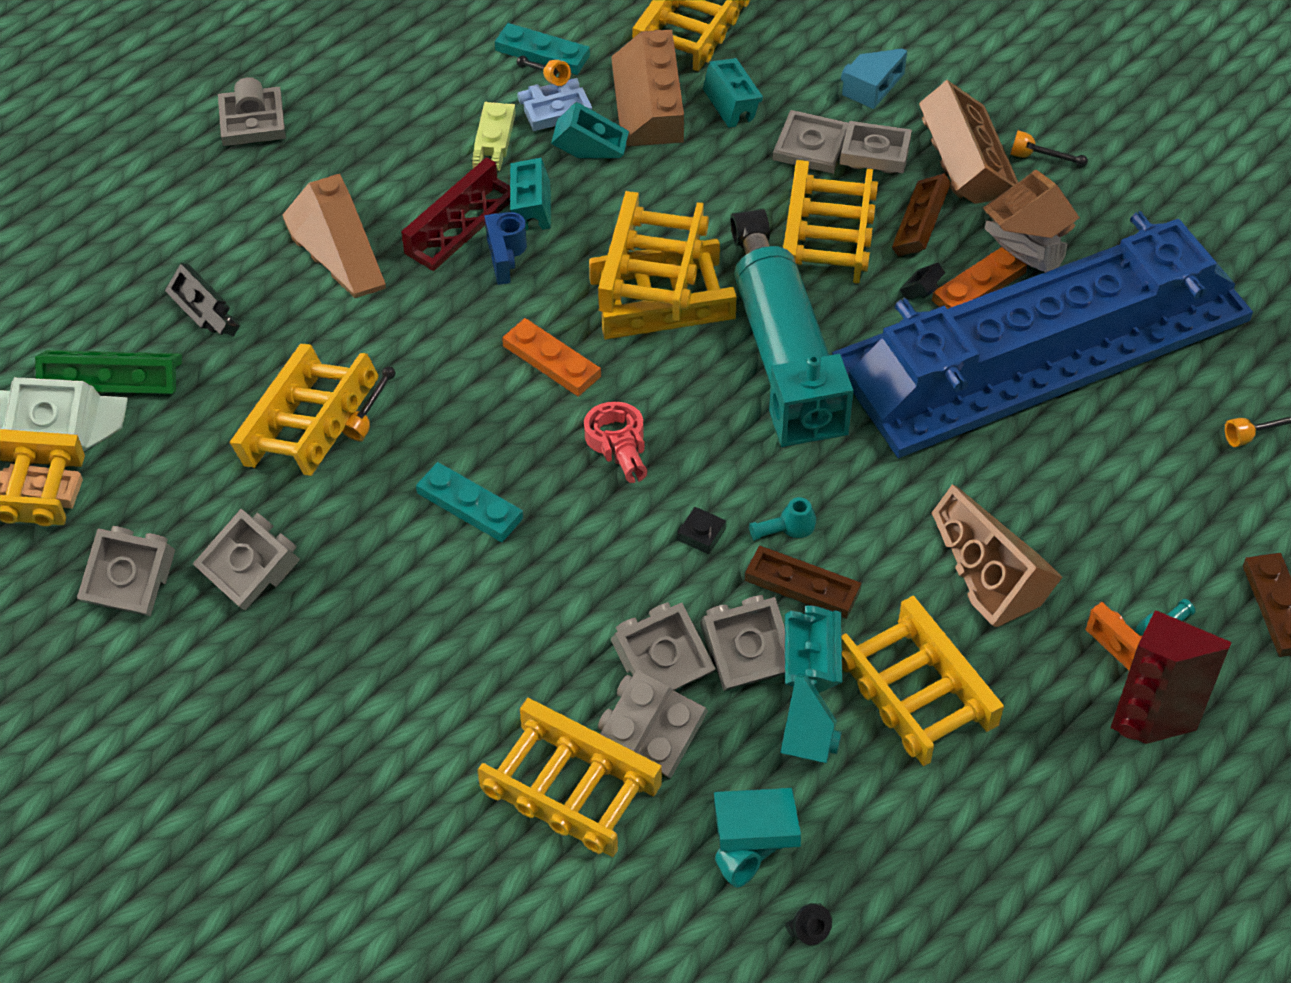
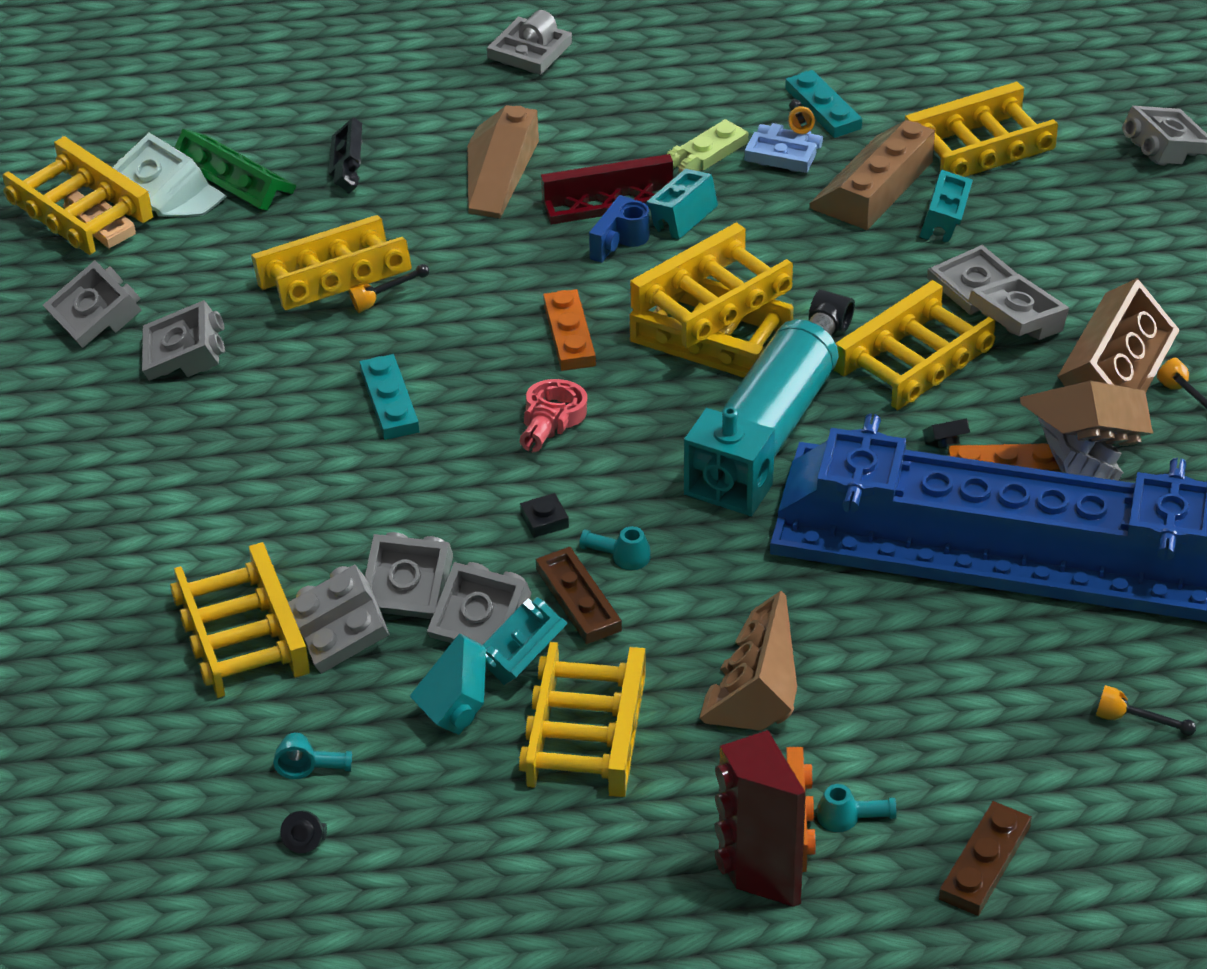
camera: 40 degrees right, 10 degrees down
(589, 134) = (780, 180): teal slope -> none
(757, 819) = (340, 732): teal tile -> none
(873, 76) = (1094, 254): dark azure slope -> none
(921, 215) = (1007, 382): reddish brown plate -> none

